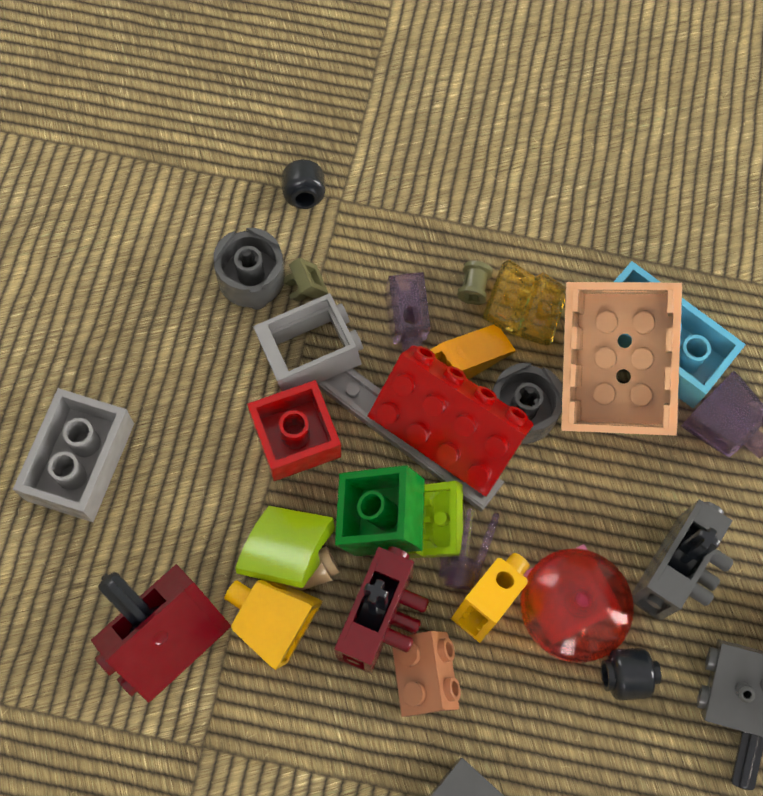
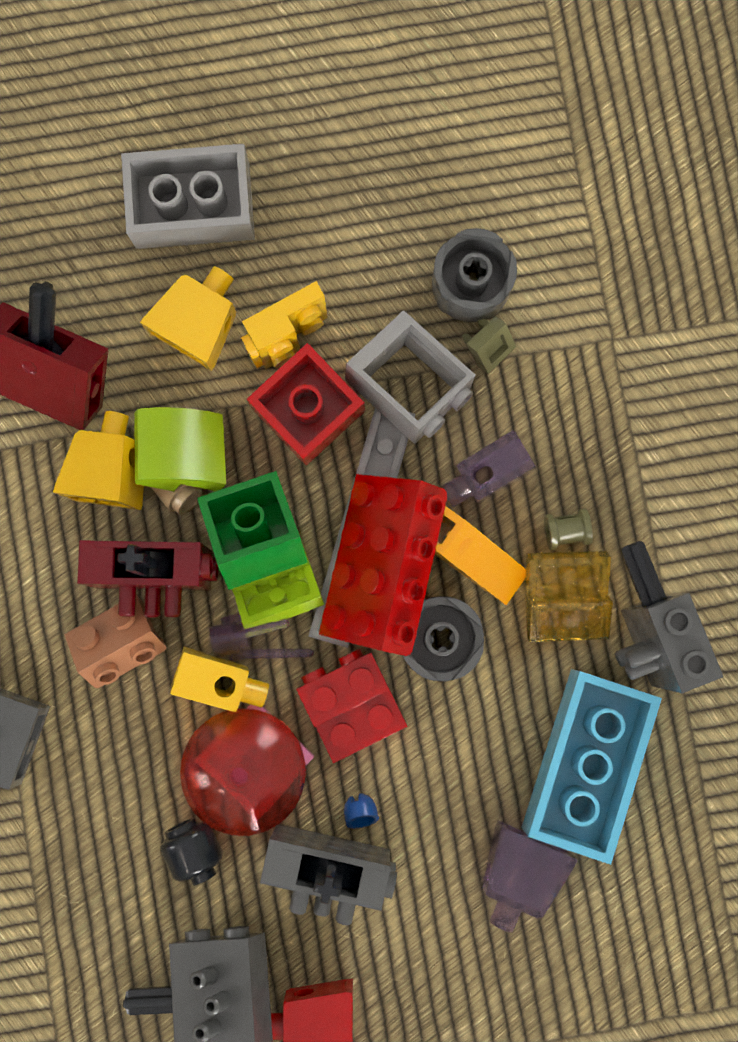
camera: 75 degrees right, 15 degrees up
(178, 494) = (194, 317): none -> yellow torso
(226, 427) = (274, 331): none -> yellow plate
(303, 184) = (606, 289): black head -> none
(551, 498) = (350, 705): none -> red plate
(587, 238) = (665, 632): none -> dark grey piece
(592, 357) = (473, 709): light nougat container -> none
(642, 524) = (361, 812): none -> blue hinge

